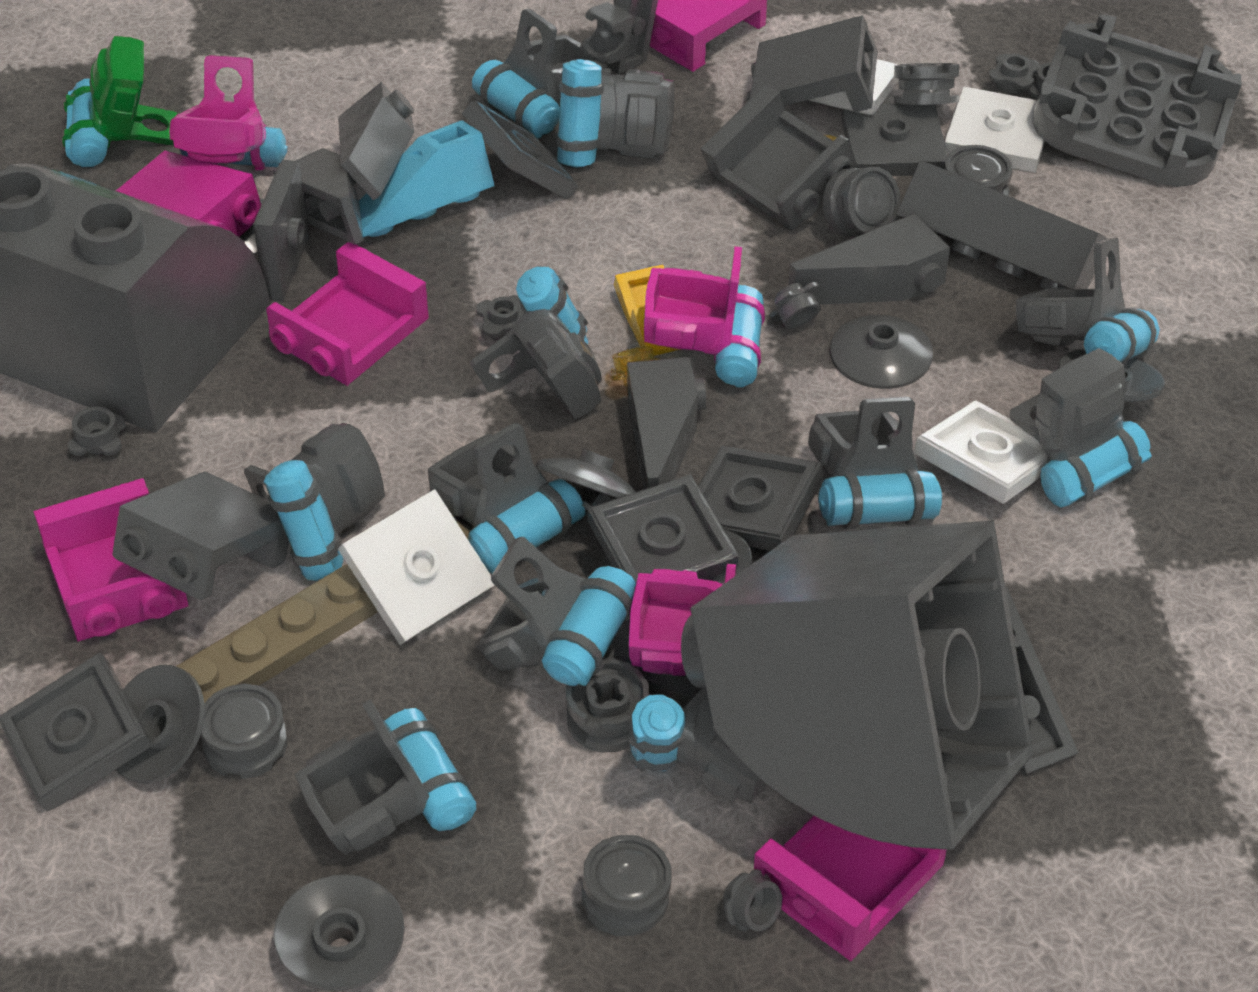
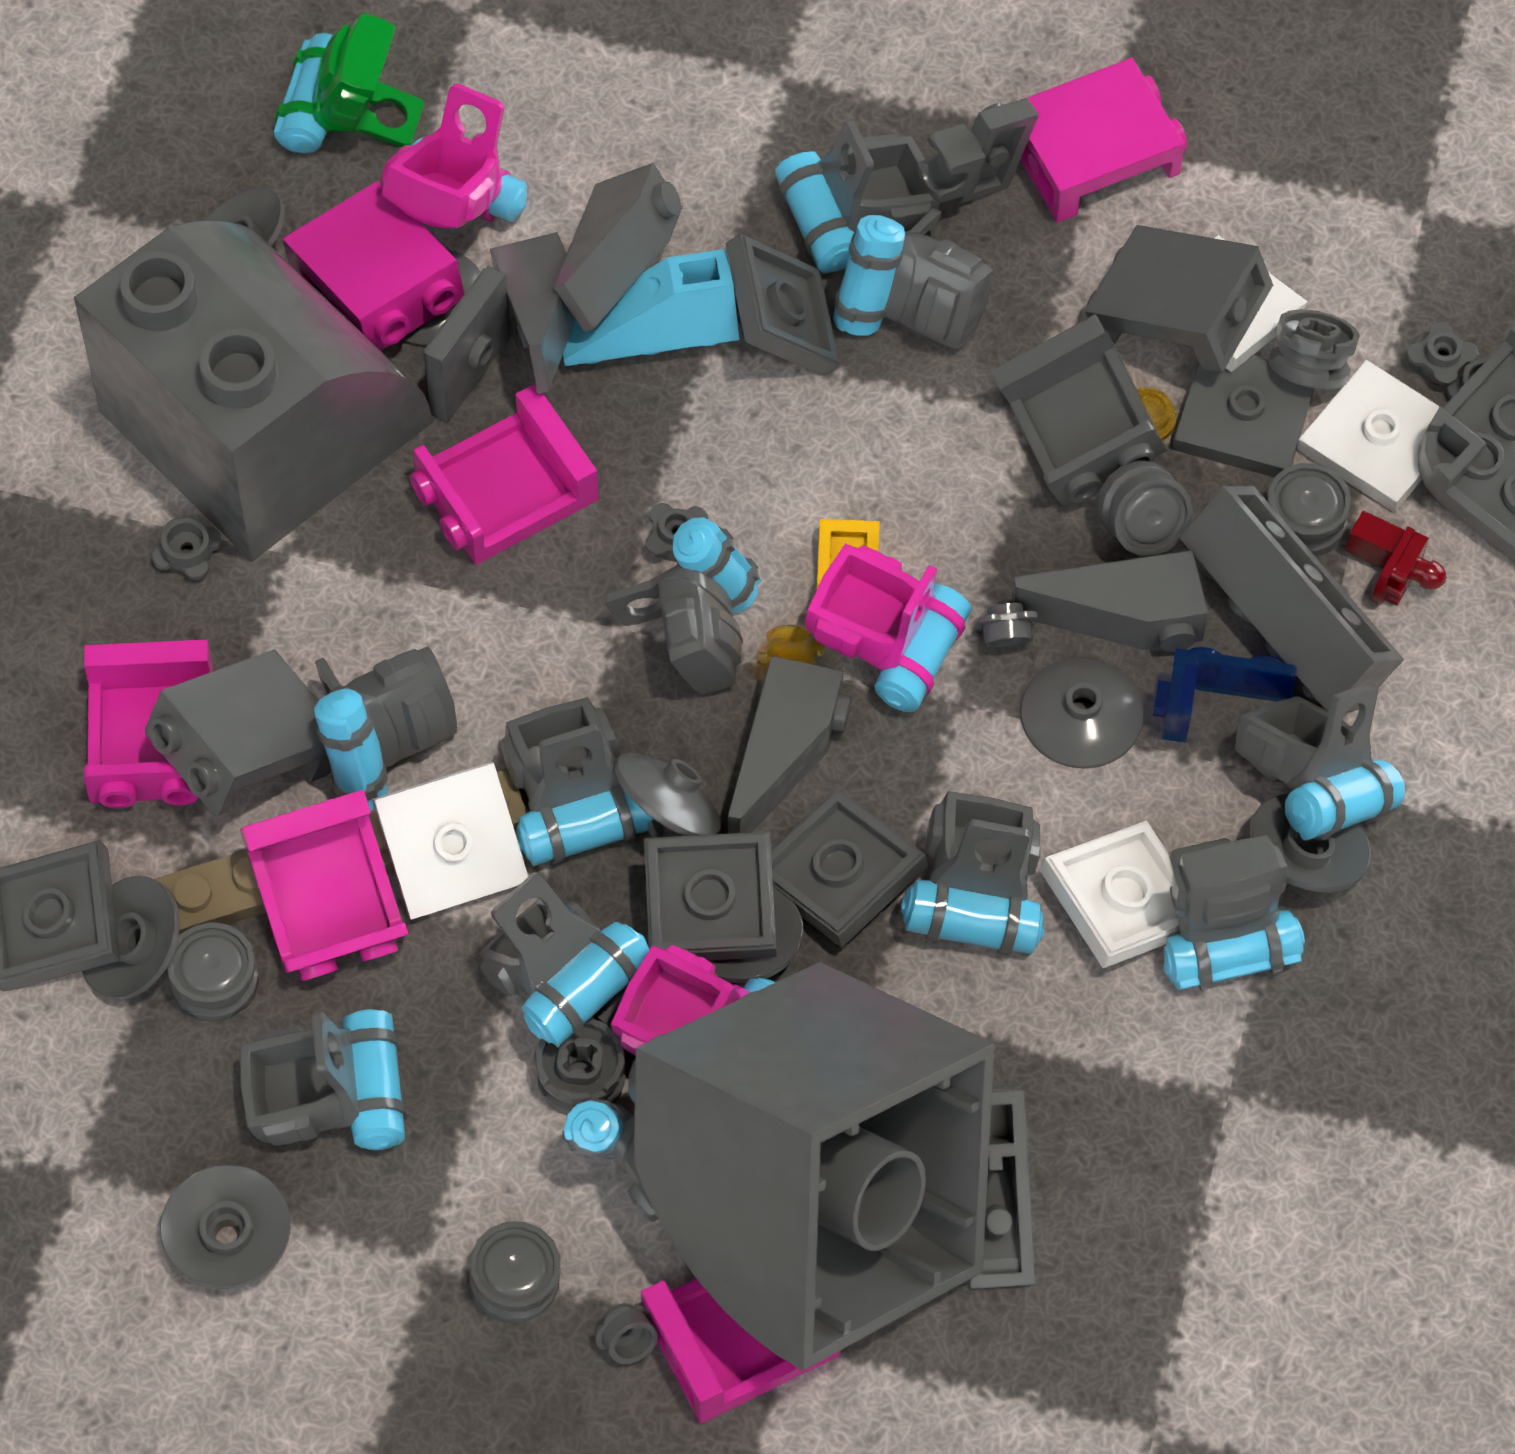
camera: 20 degrees right, 15 degrees up
(317, 627) = (324, 885): none -> dark pink panel
(968, 292) = (1217, 673): none -> clear blue bracket
(1056, 187) = (1398, 553): none -> dark red piece

